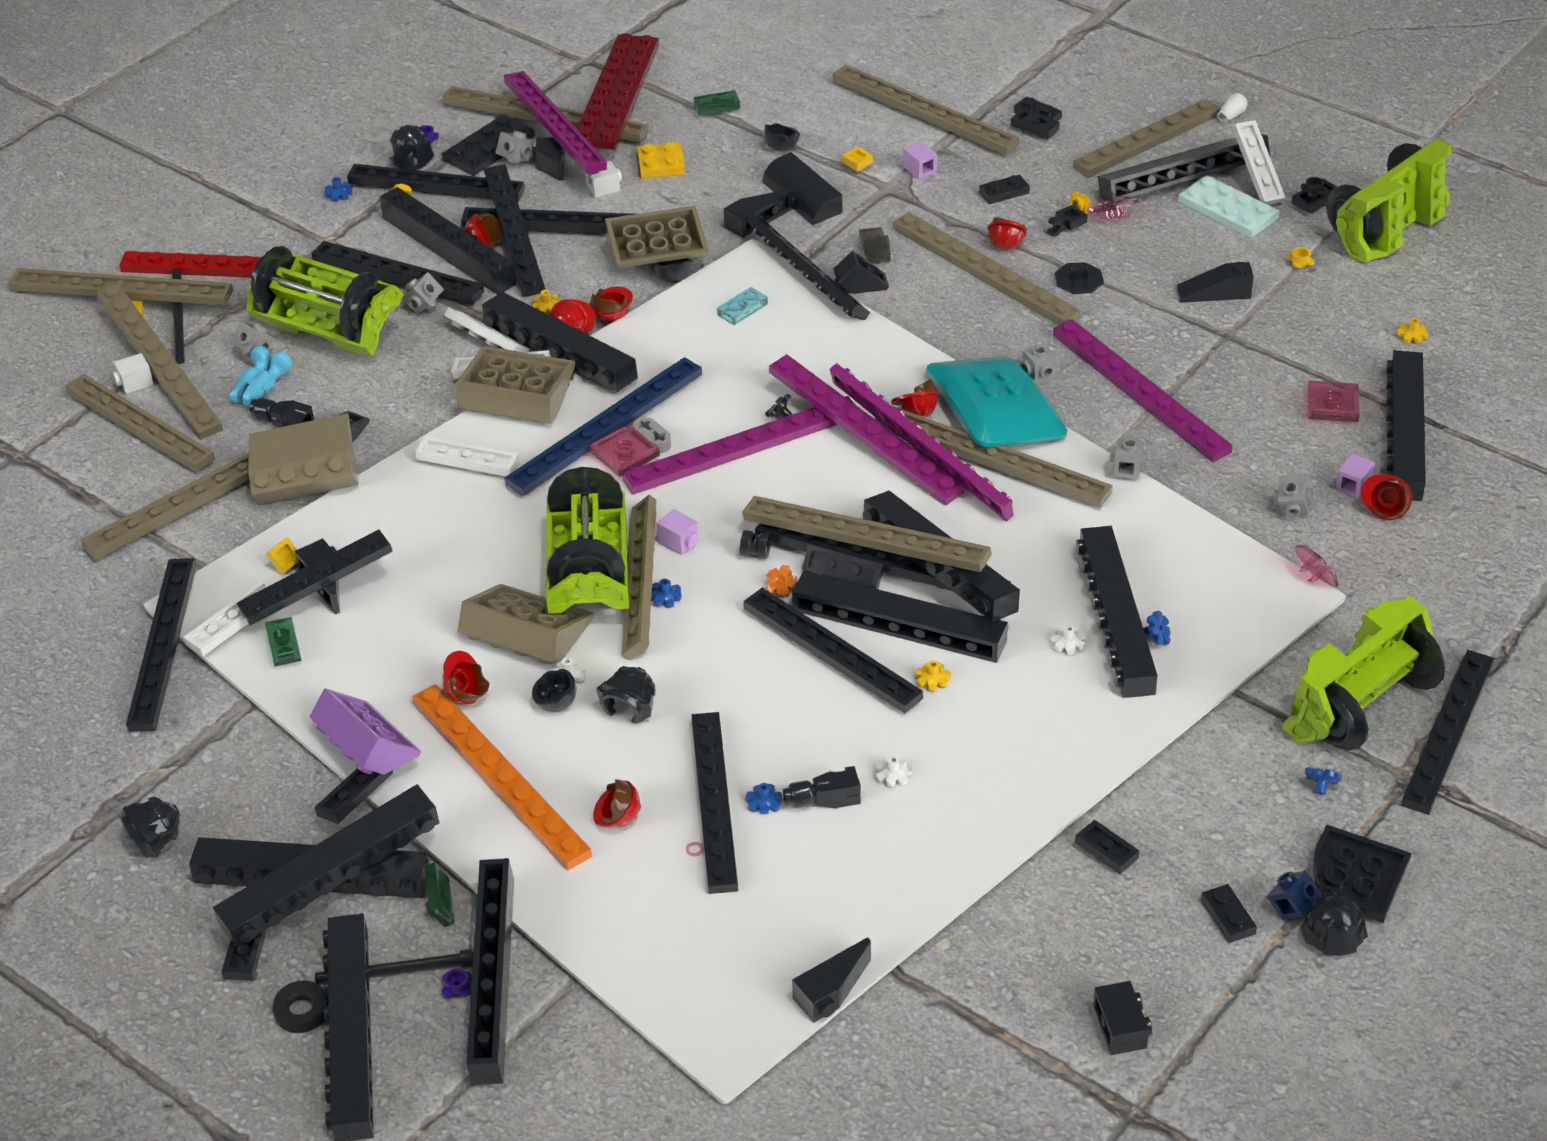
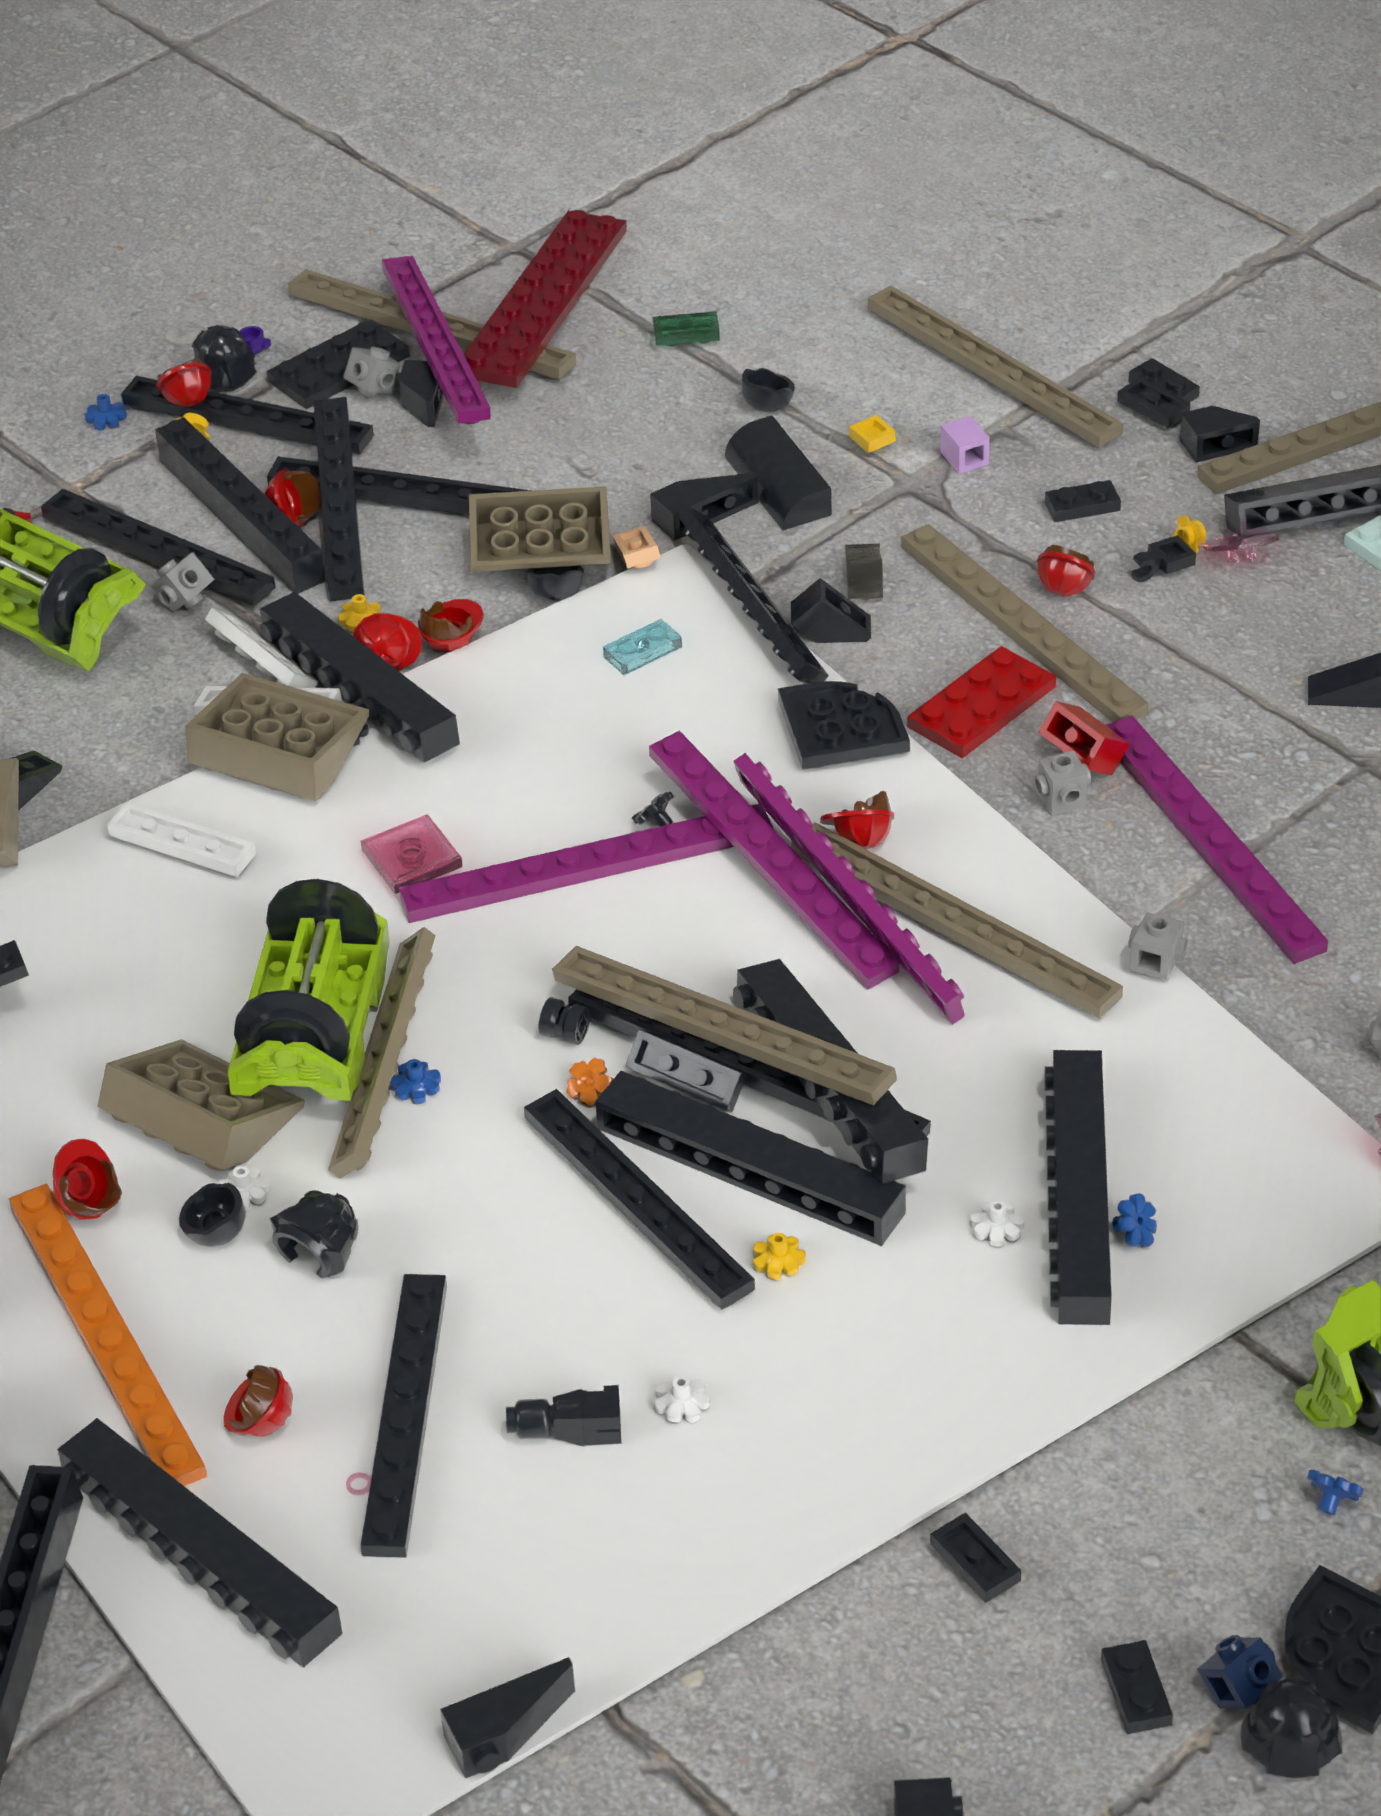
camera: 10 degrees right, 0 degrees up
(392, 164) = (185, 383): none -> red piece
(603, 897) = (201, 1544): none -> black brick
(605, 181) = (492, 435): white brick -> none
(607, 422) = (400, 806): dark blue plate -> none
(653, 431) = (465, 830): light grey beam -> none
(661, 160) = (583, 409): yellow plate -> none
(677, 531) = (455, 988): lavender brick -> none
(722, 243) = (636, 547): none -> light nougat plate
(763, 798) = (479, 1417): blue plant -> none
(886, 341) = (840, 723): none -> black plate
(971, 320) = (981, 701): none -> red plate
(997, 401) = (983, 834): teal wedge -> none
(1039, 331) = (1078, 731): none -> red brick
(1079, 278) = (1161, 651): black piece -> none
(1081, 138) = (1217, 432): none -> black slope

